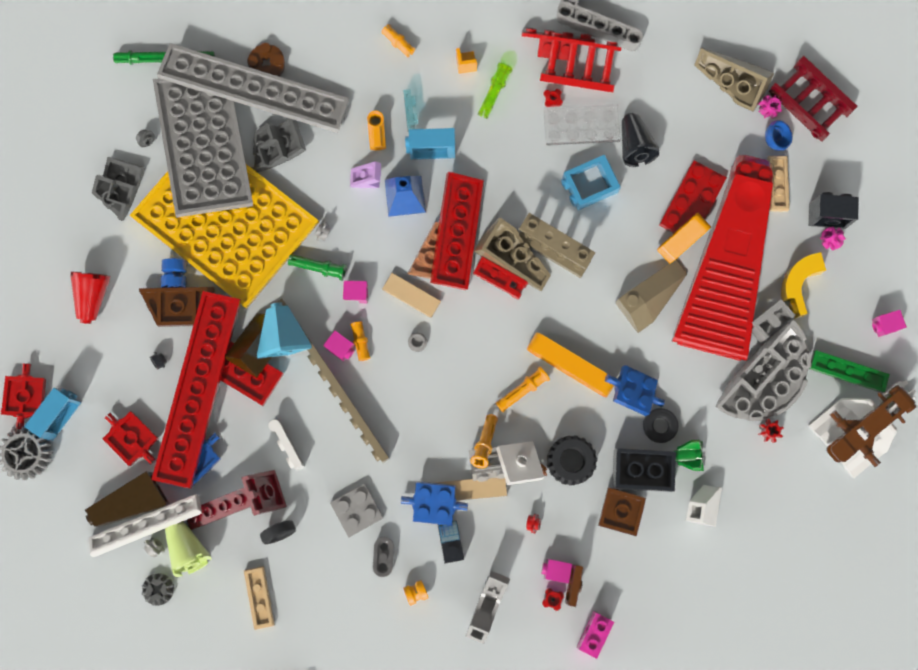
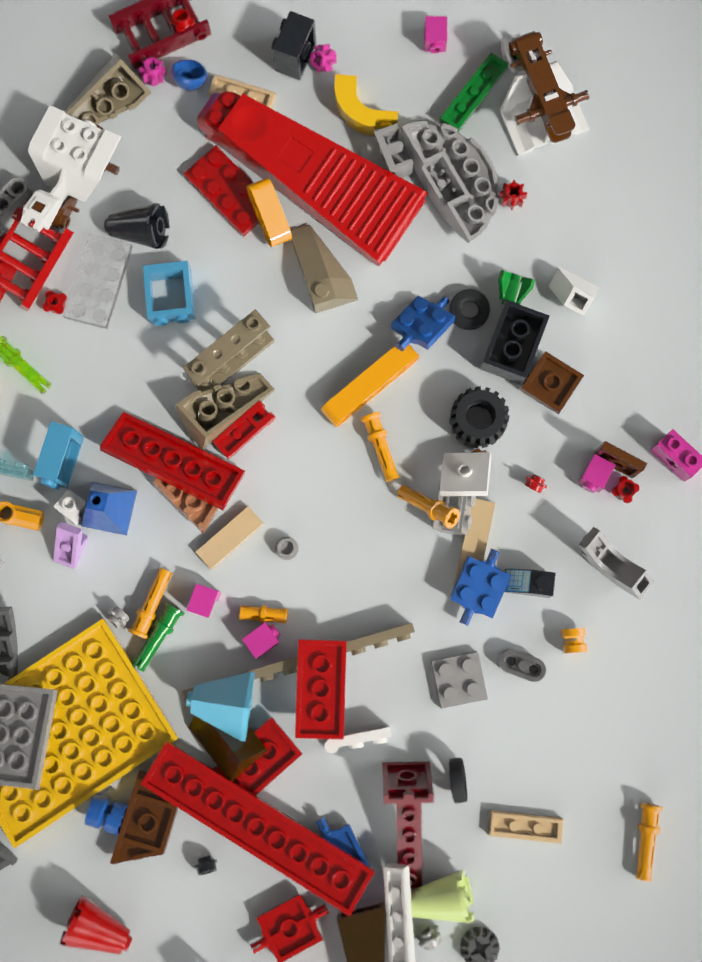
camera: 65 degrees left, 0 degrees up
(314, 402) = (320, 689): none -> red plate
(332, 252) = (147, 613): none -> light orange pin
(395, 166) = (70, 506): none -> white bracket
(670, 69) = (69, 160): none -> white piece
(821, 114) = (181, 20): none -> red plate

